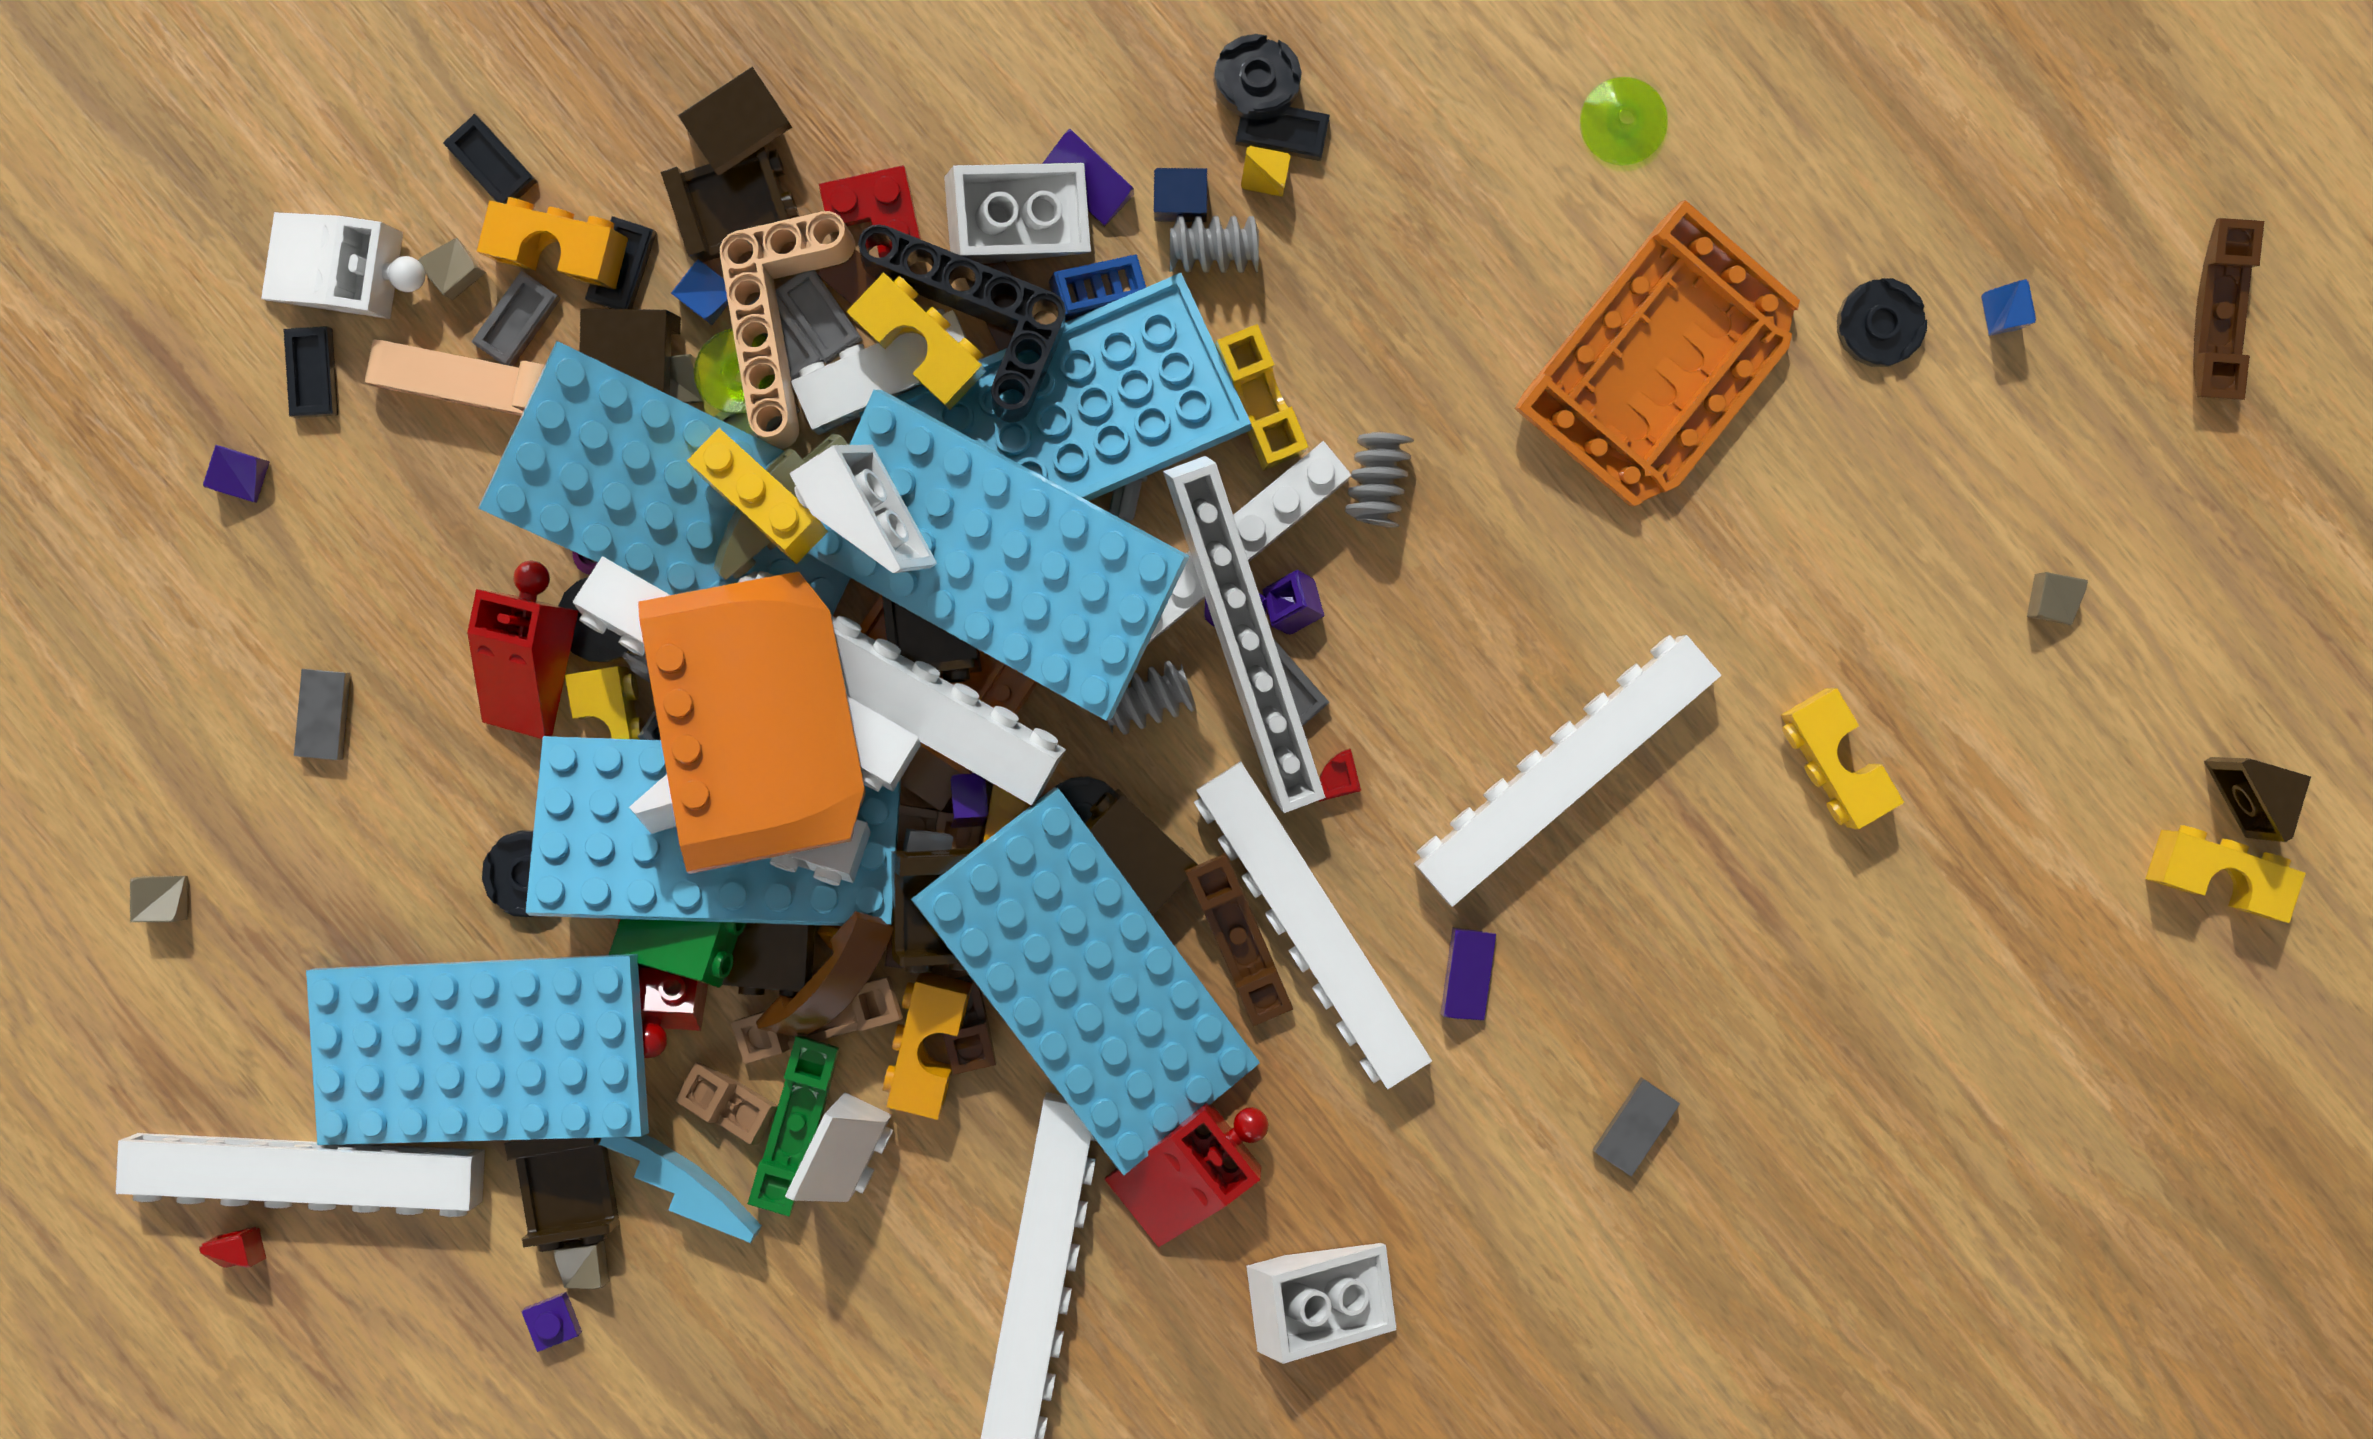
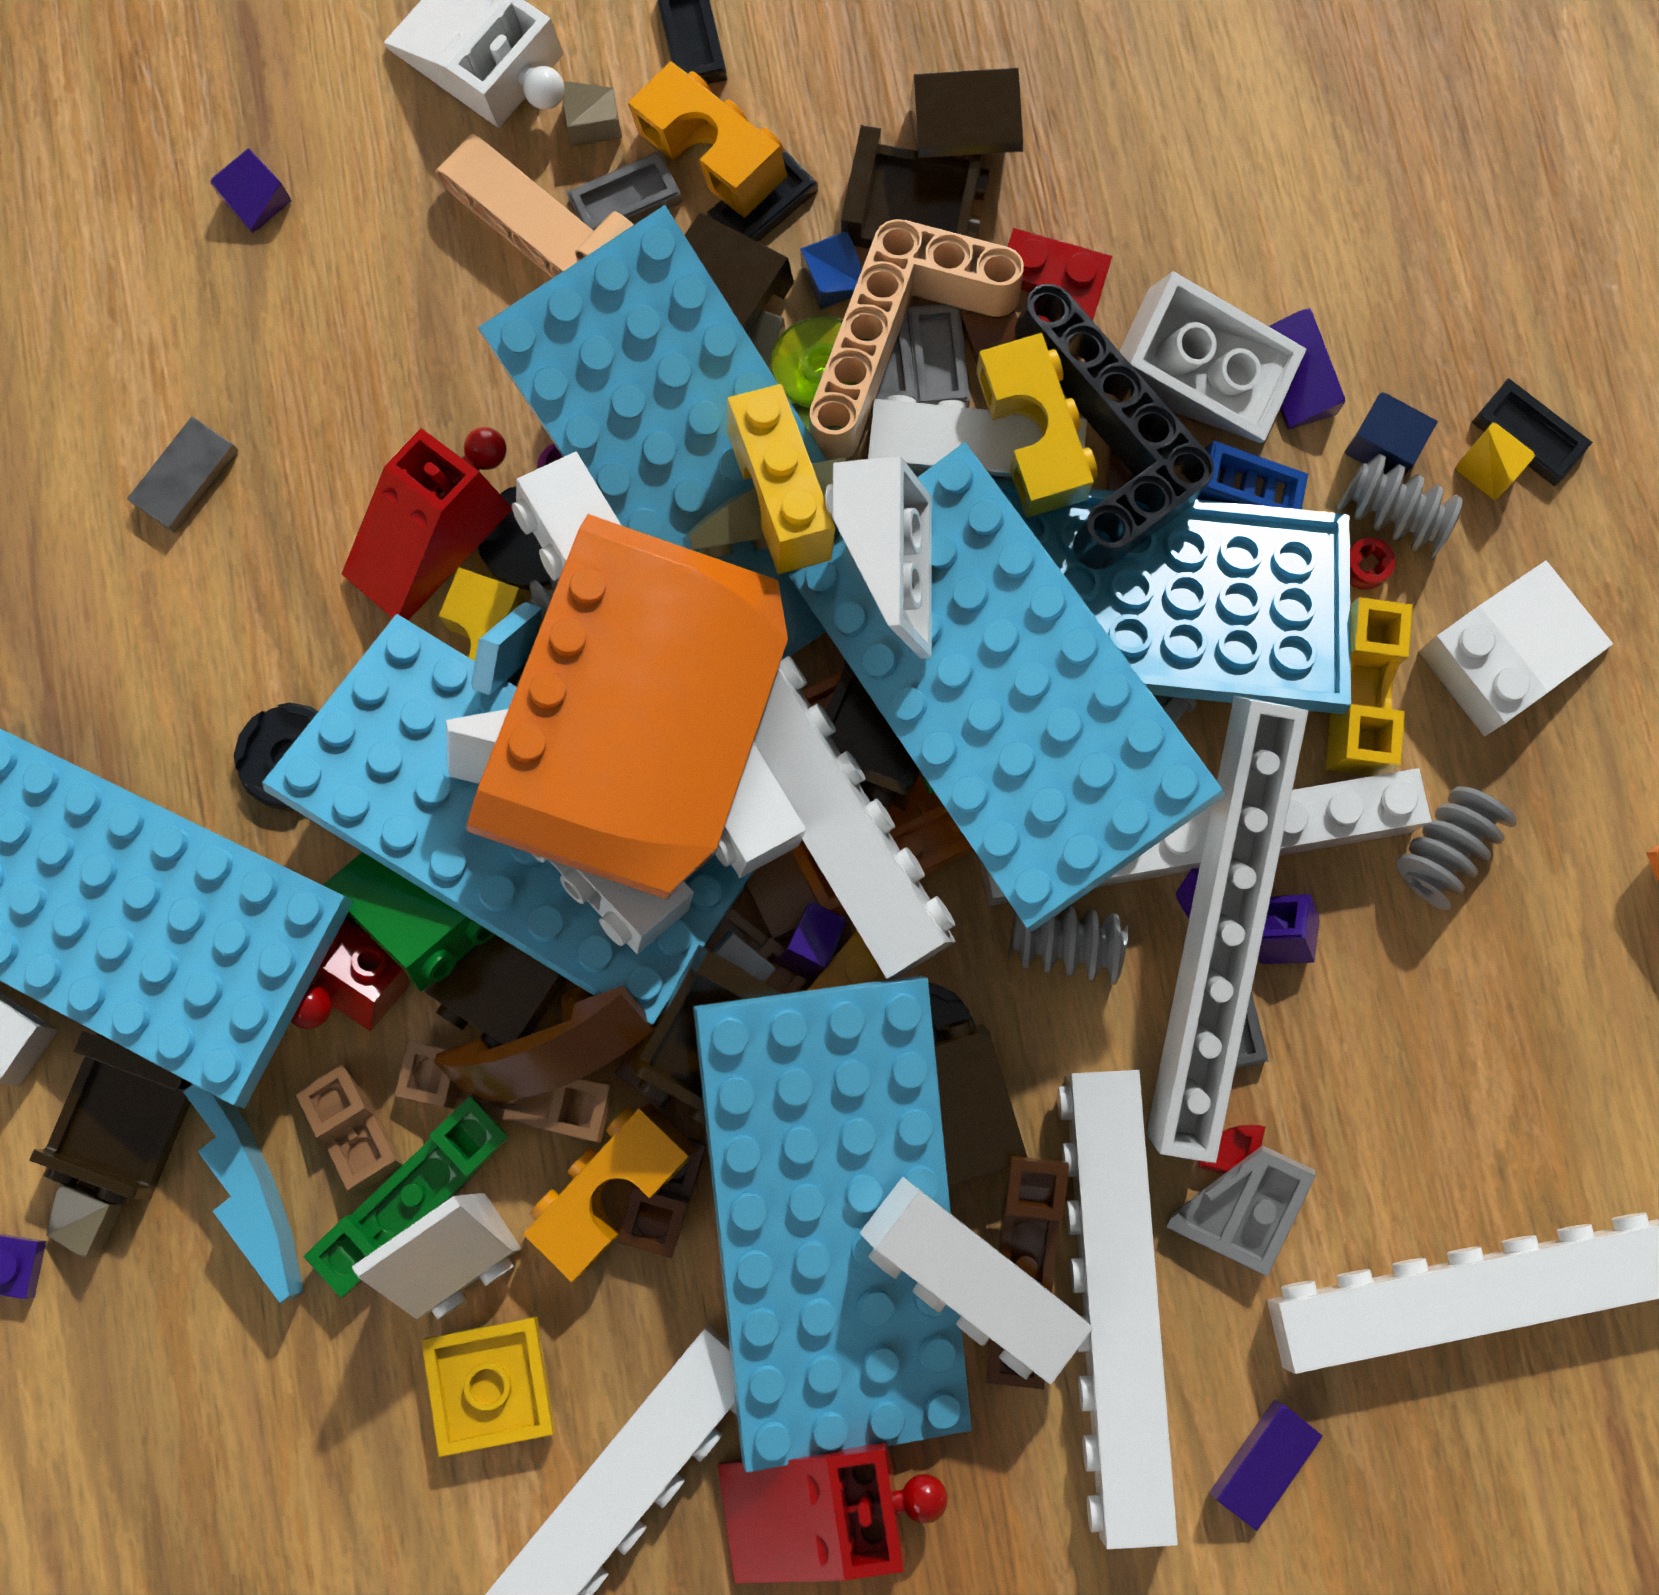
camera: 30 degrees right, 10 degrees down
(310, 372) = (387, 137): black tile -> none
(635, 718) = (505, 648): none -> medium azure tile
(922, 1216) = (488, 1386): none -> yellow plate
(1203, 969) = (975, 1281): none -> white brick
(1228, 295) = (1383, 569): none -> red bush
(1257, 77) = (1534, 364): black tile -> none
(1352, 302) = (1515, 648): none -> white slope
(1366, 813) = (1247, 1209): none -> light grey wing

